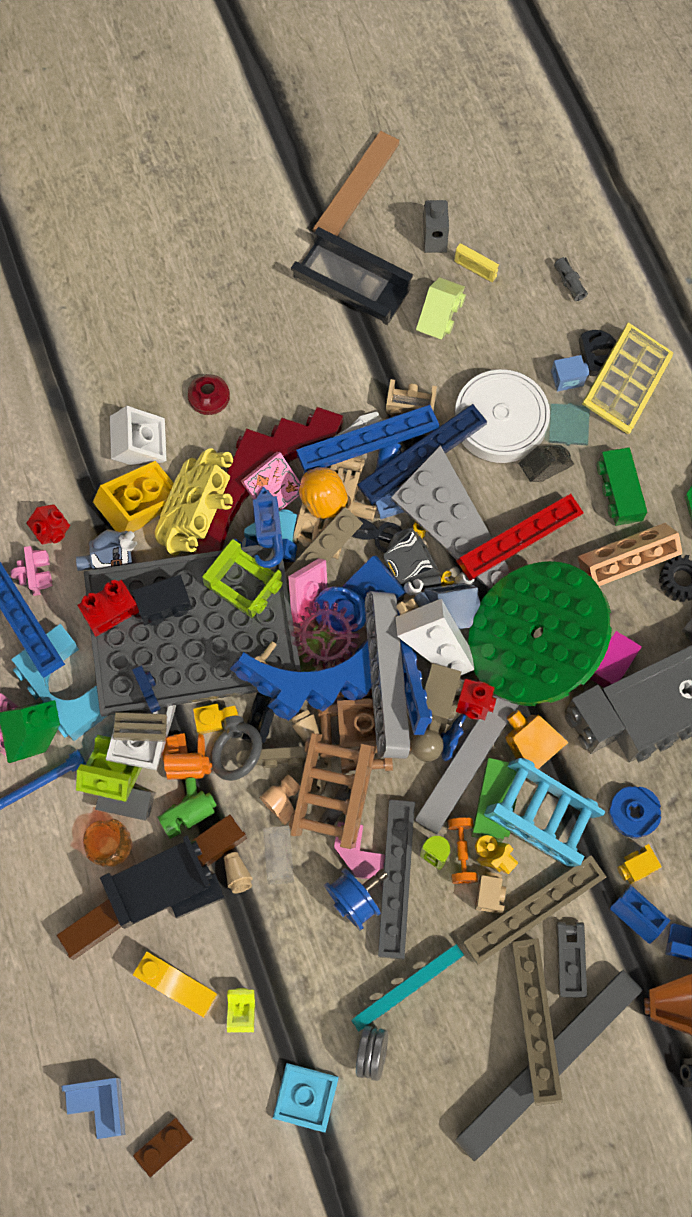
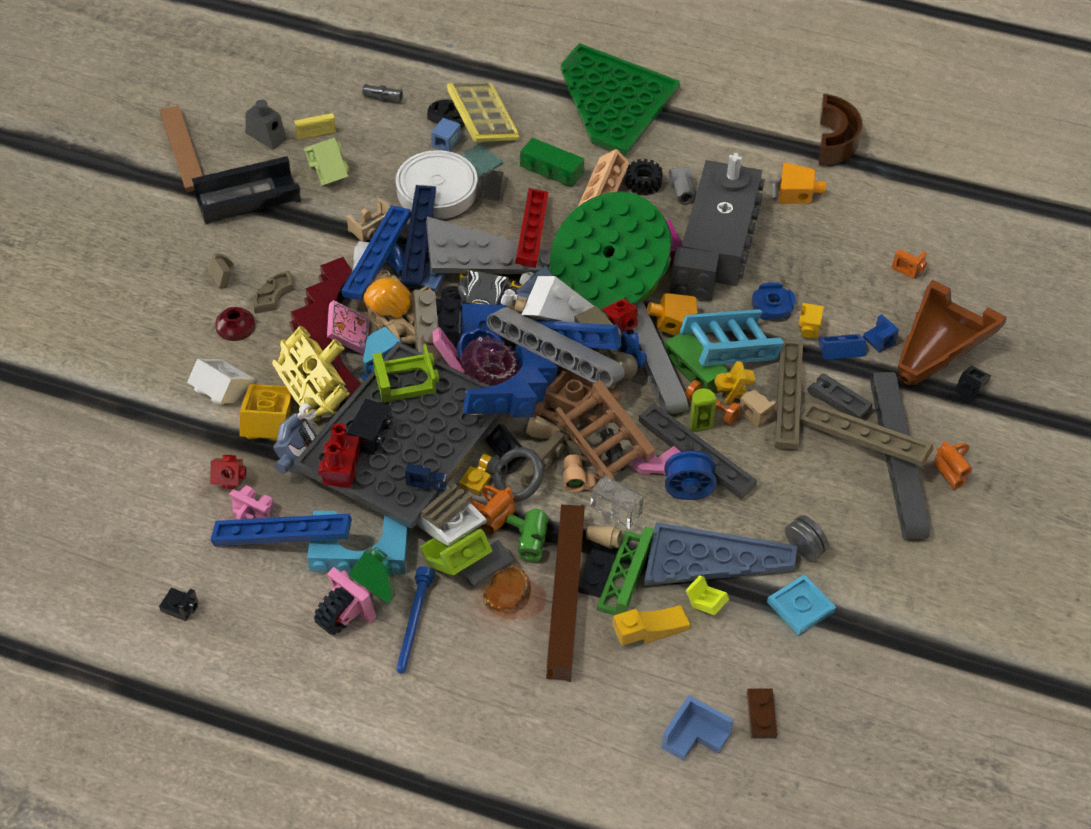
camera: 50 degrees left, 20 degrees down
(157, 883) = (570, 573): black panel -> none
(218, 928) = (630, 575): none -> bright green fence
(251, 328) = (220, 270): none -> dark tan tile
(265, 391) = (270, 293): none -> dark tan tile
(268, 527) = (380, 339): blue plate -> none
(282, 967) = (686, 553): none -> sand blue wing
(351, 560) = (451, 319): none -> black brick
(407, 987) = (778, 494): teal beam -> none
(576, 1123) = (953, 464): none -> orange piece

